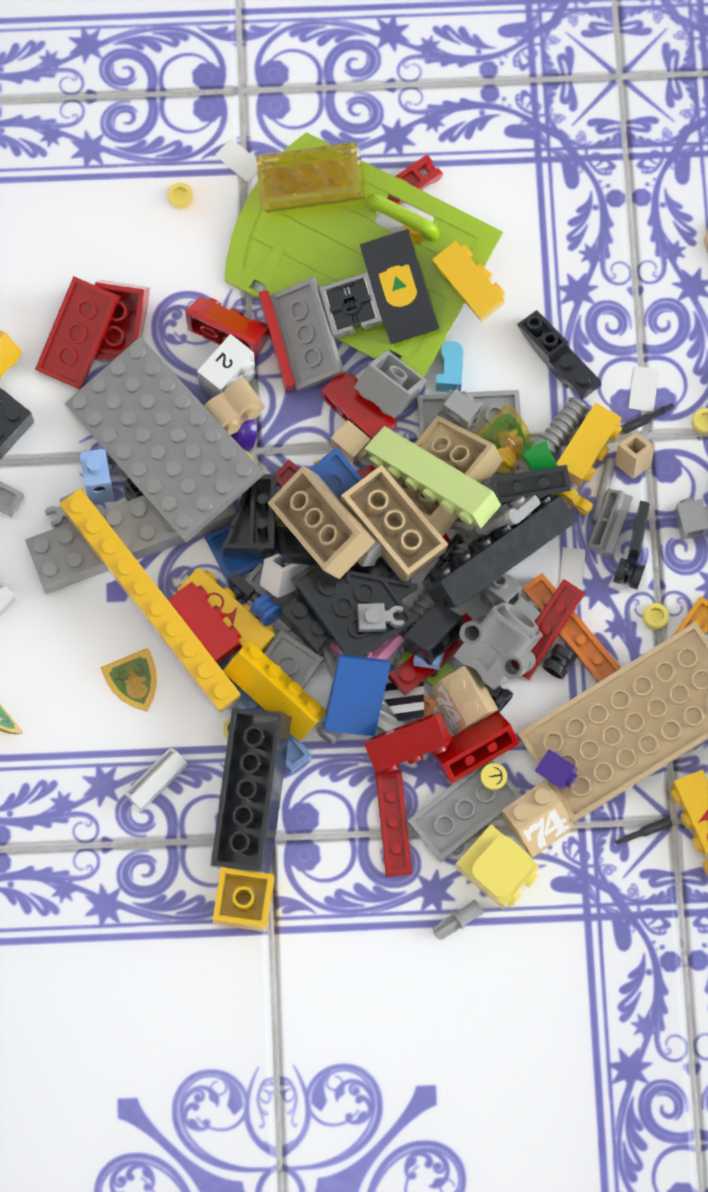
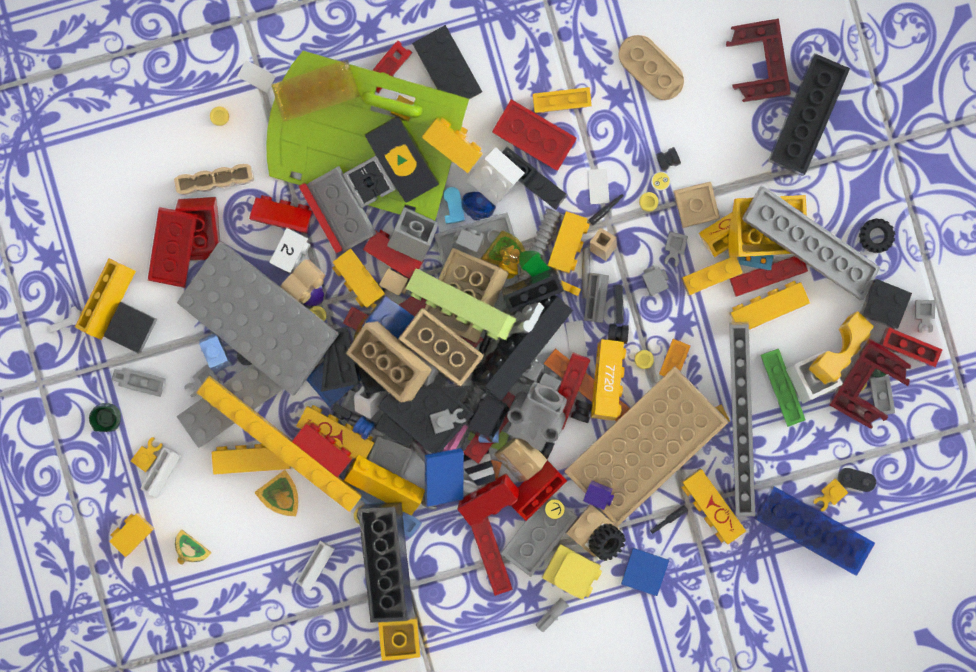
camera: 10 degrees left, 15 degrees up
(103, 621) = (245, 460): none -> yellow brick
(145, 264) = (220, 177): none -> tan brick
(305, 425) = (358, 279): none -> yellow wedge
(482, 194) = (446, 64): none -> black plate
(482, 373) = (477, 202): none -> clear blue piece
(514, 338) = (495, 176): none -> white brick
(545, 828) = (601, 536): none -> black tyre
(575, 305) = (534, 135): none -> red plate
(596, 893) = (645, 571): none -> blue tile
(602, 626) = (607, 380): none -> yellow brick
(620, 271) = (562, 100): none -> yellow plate

